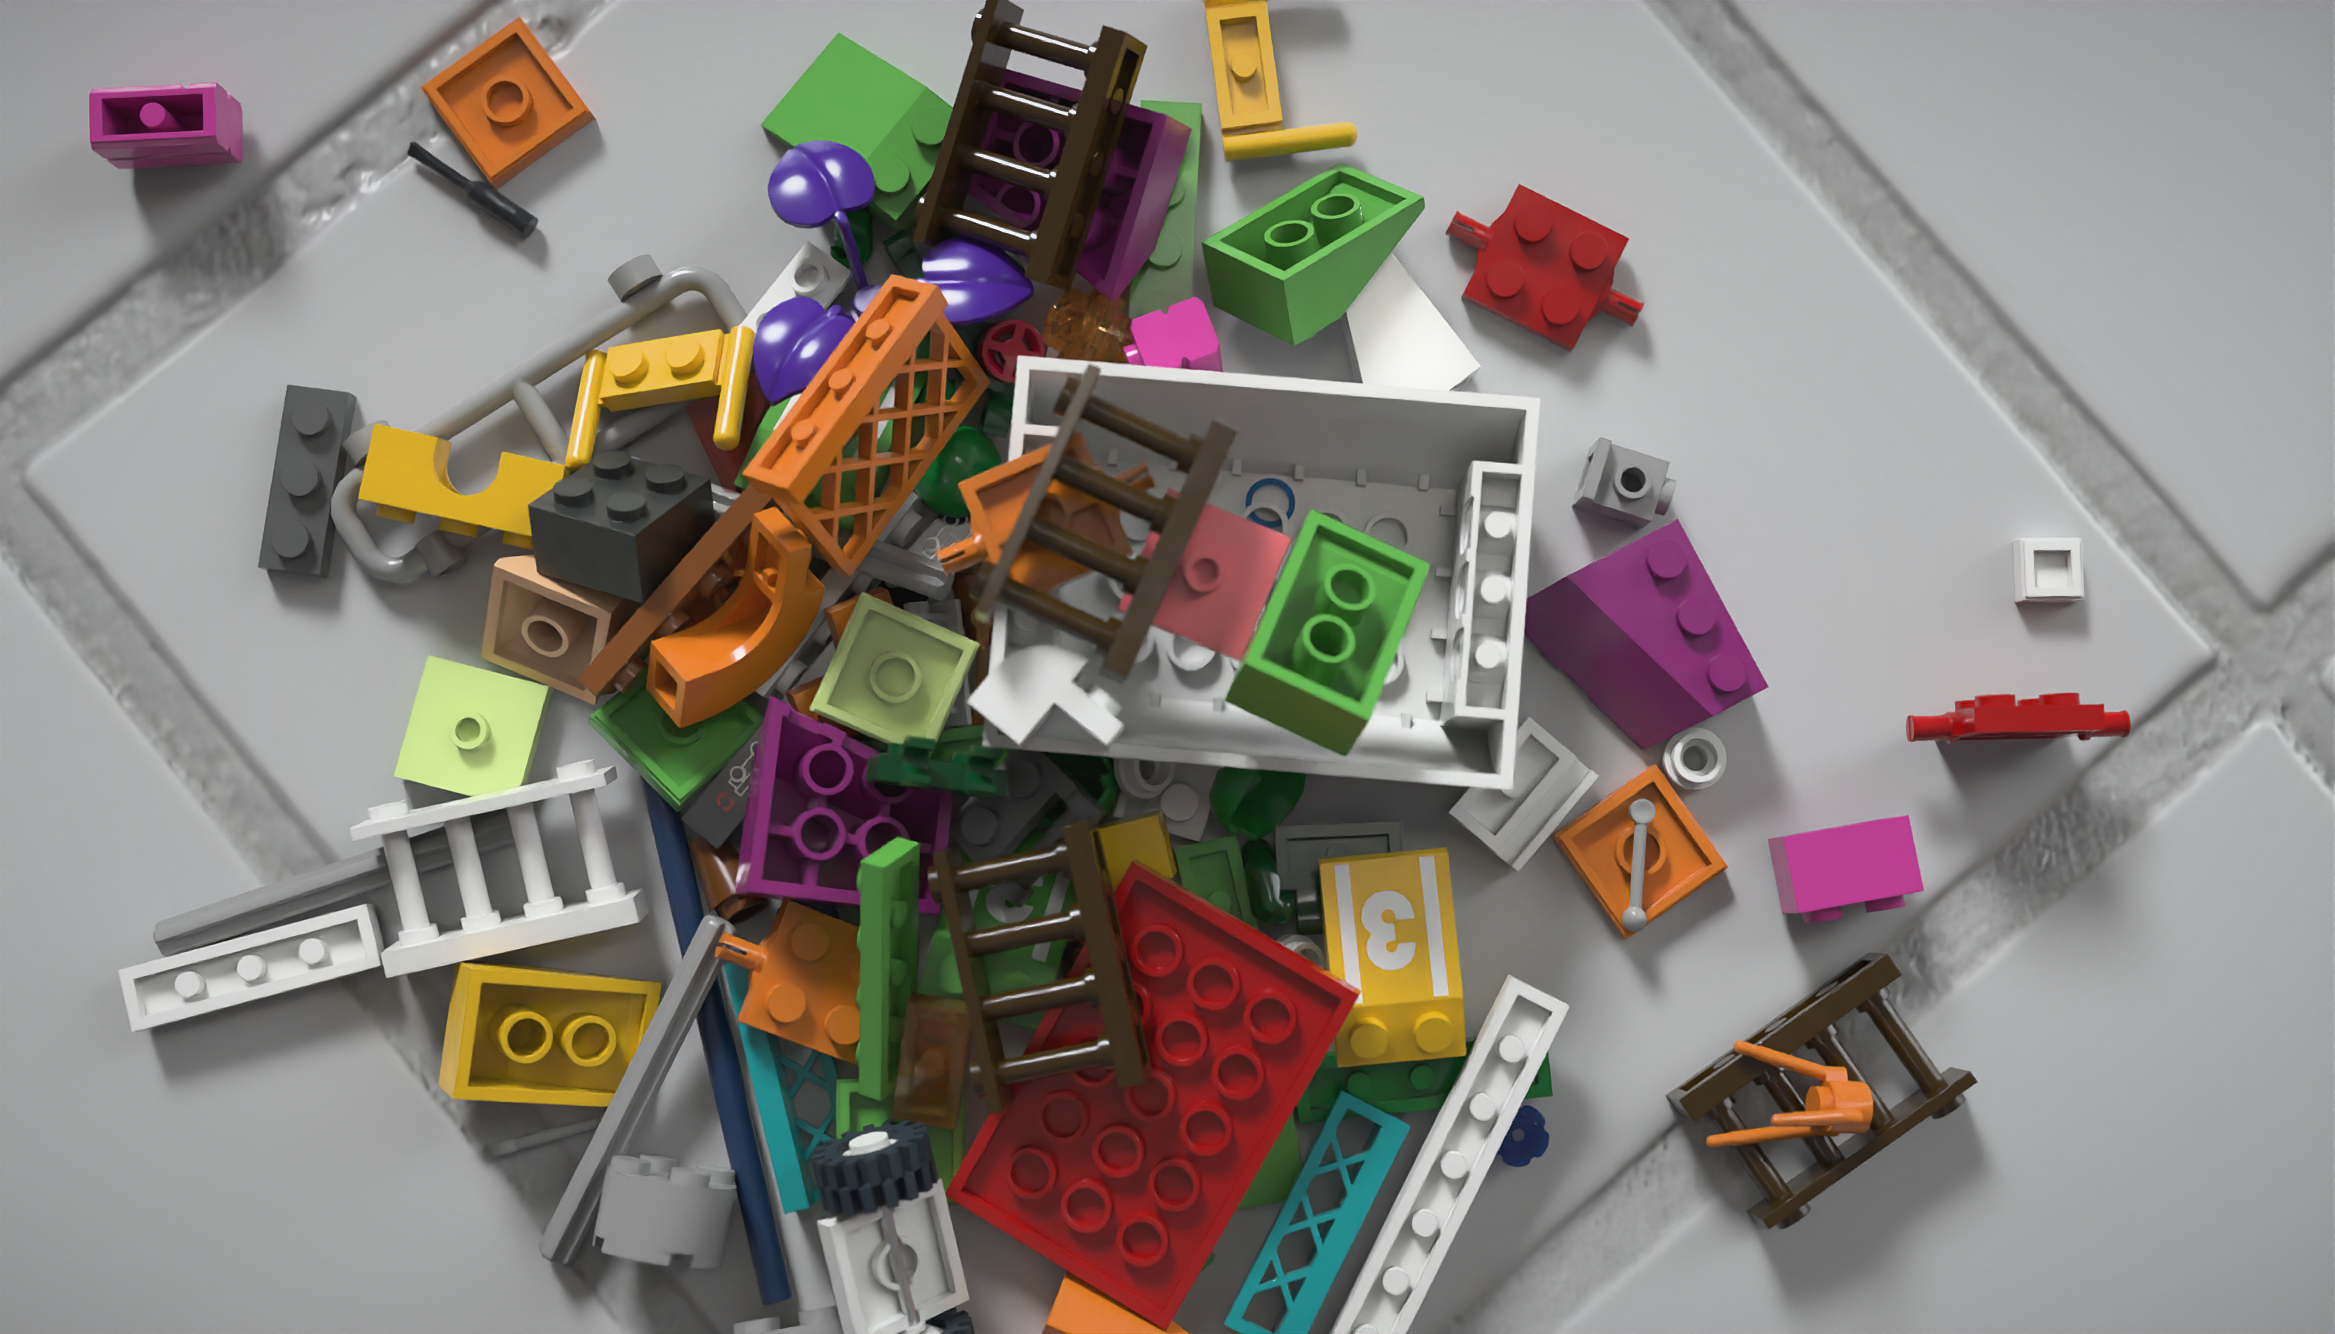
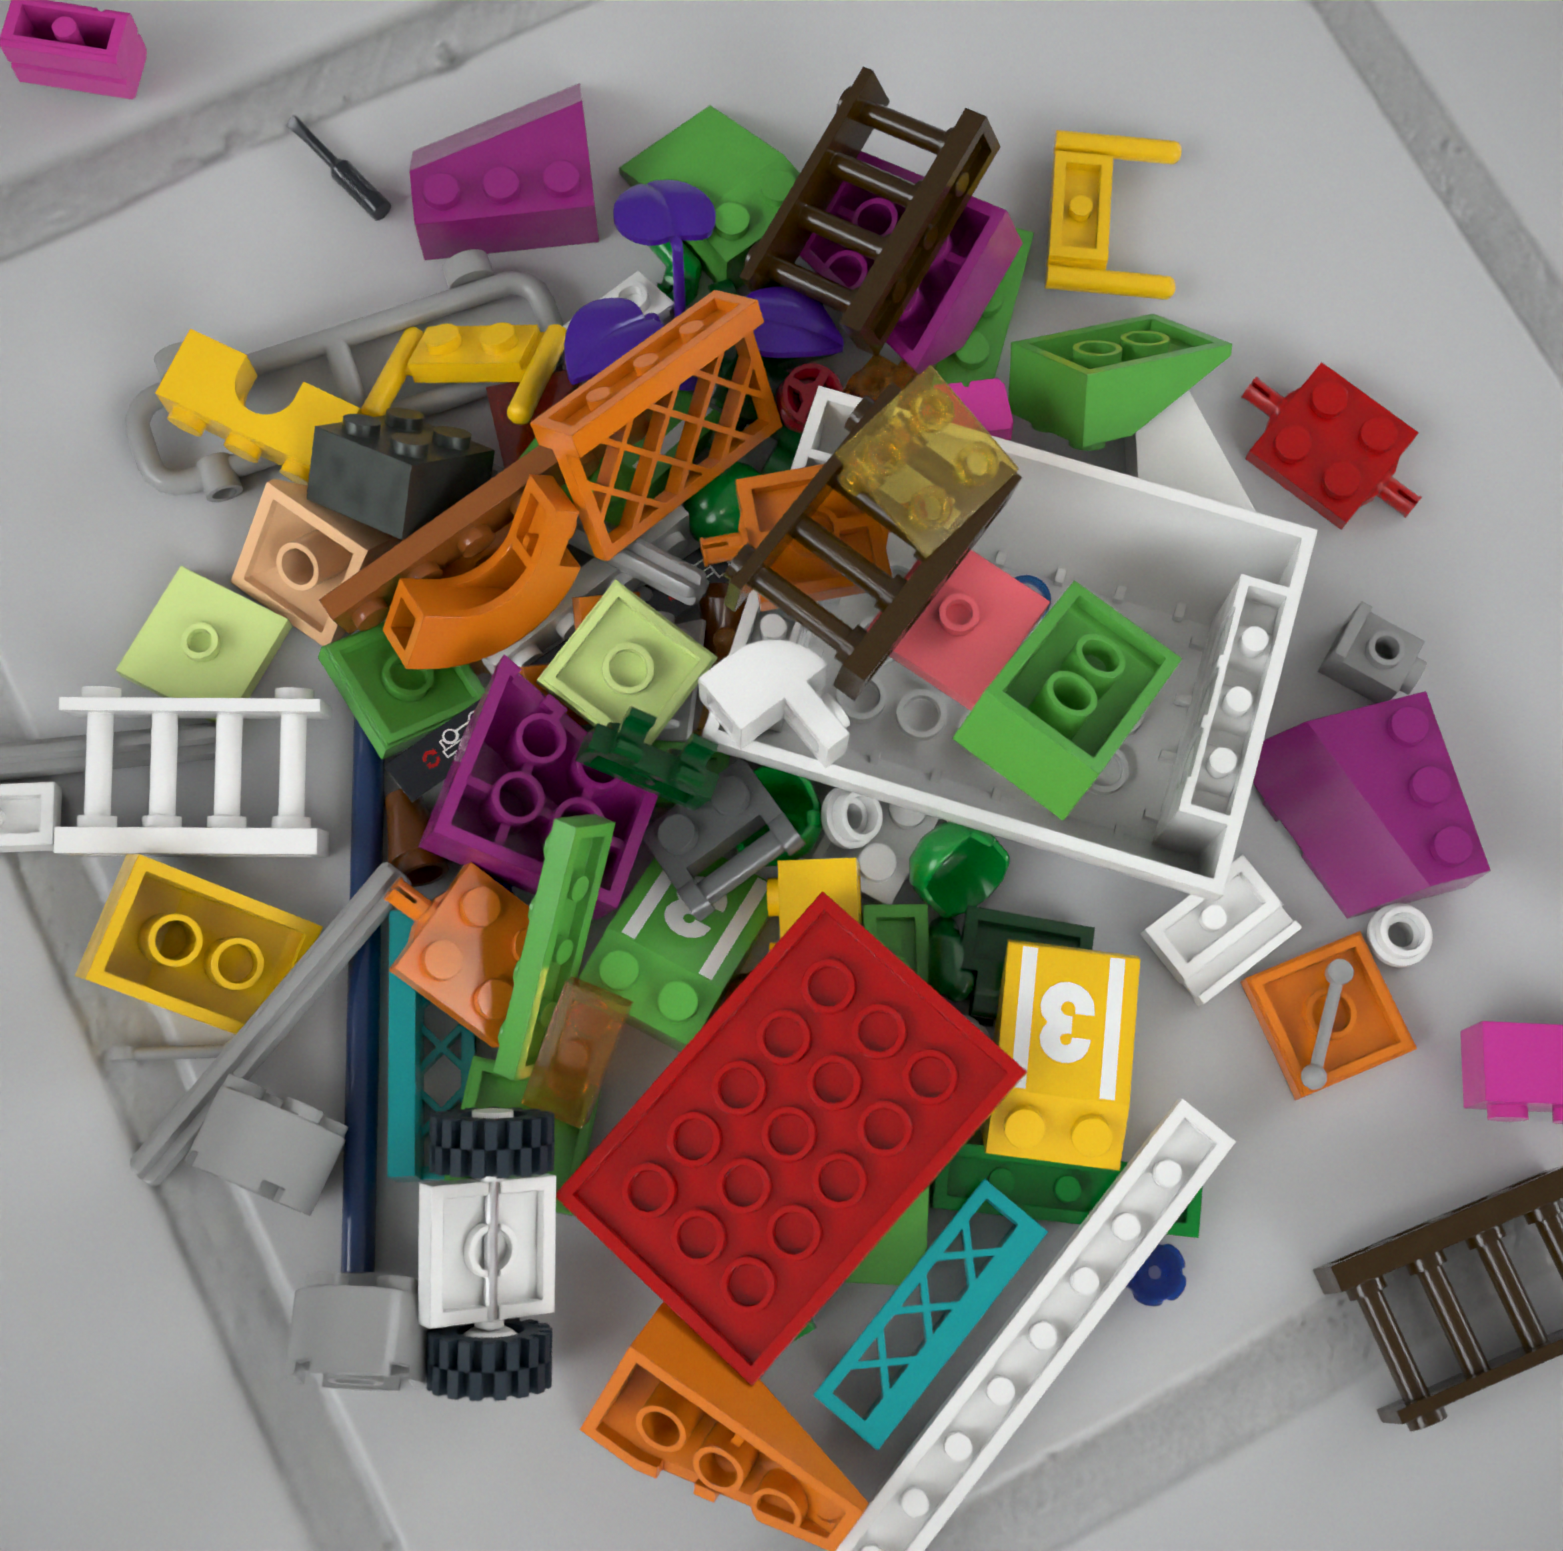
camera: 10 degrees right, 10 degrees down
(304, 478) = (116, 371): dark grey plate -> none
(507, 103) = (390, 101): orange tile -> none
(650, 166) = (507, 182): none -> magenta wedge
(1103, 984) = (767, 1003): dark brown fence -> none
(1140, 443) = (925, 462): none -> clear yellow hinge
(1830, 1108) = (1488, 1306): orange plant -> none

